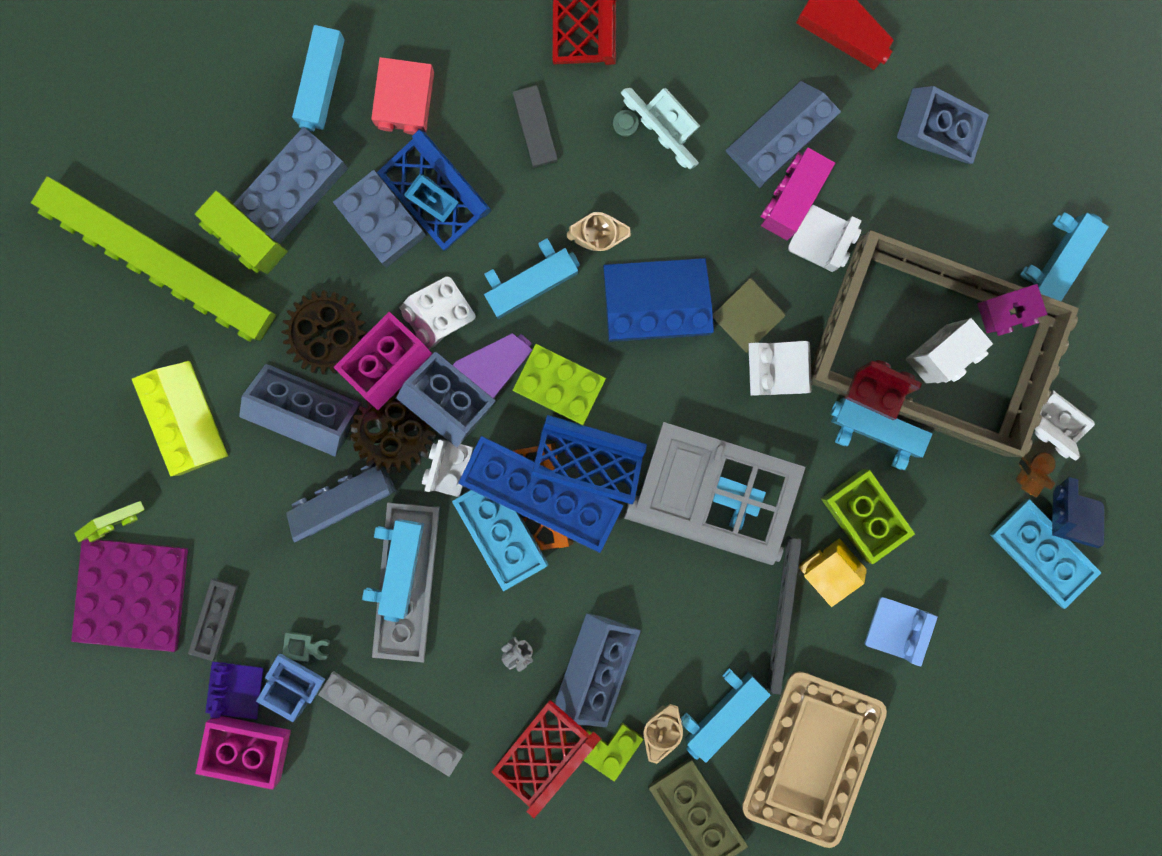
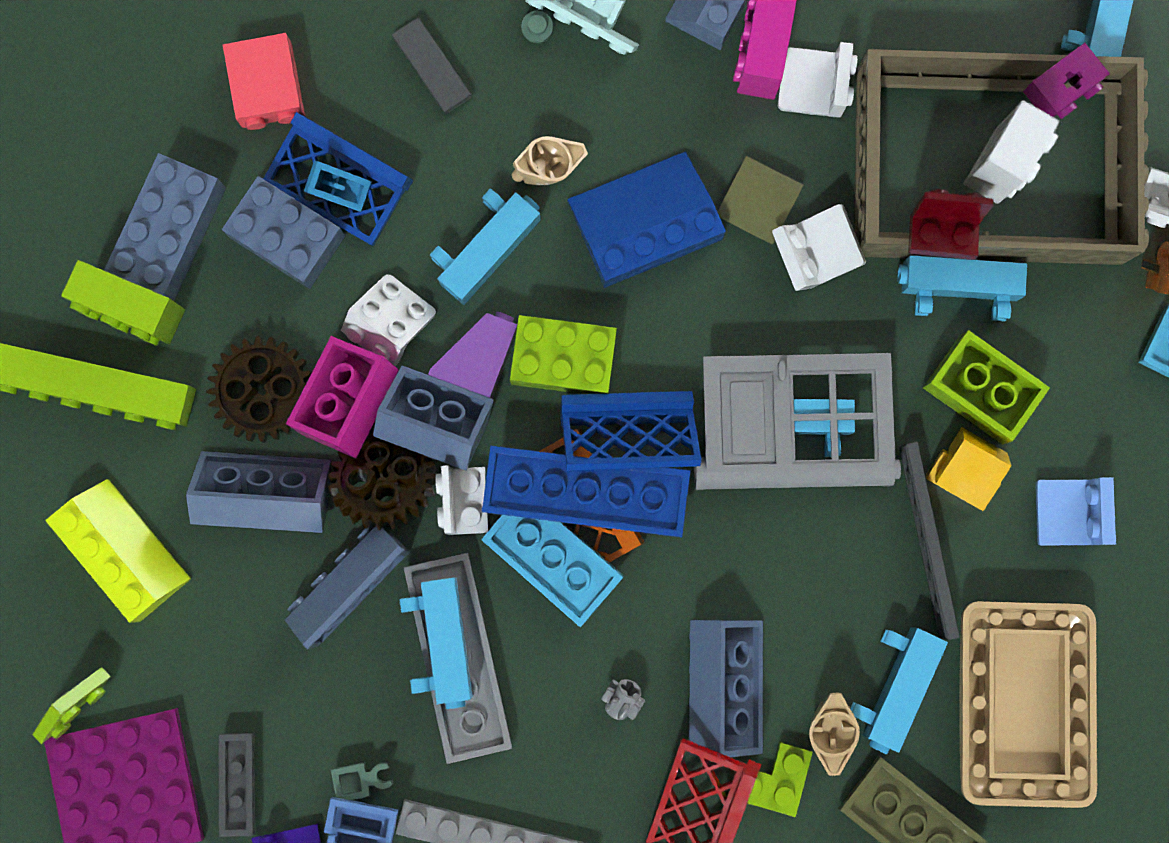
camera: 25 degrees left, 5 degrees down
(318, 78) = (157, 91): medium azure brick -> none

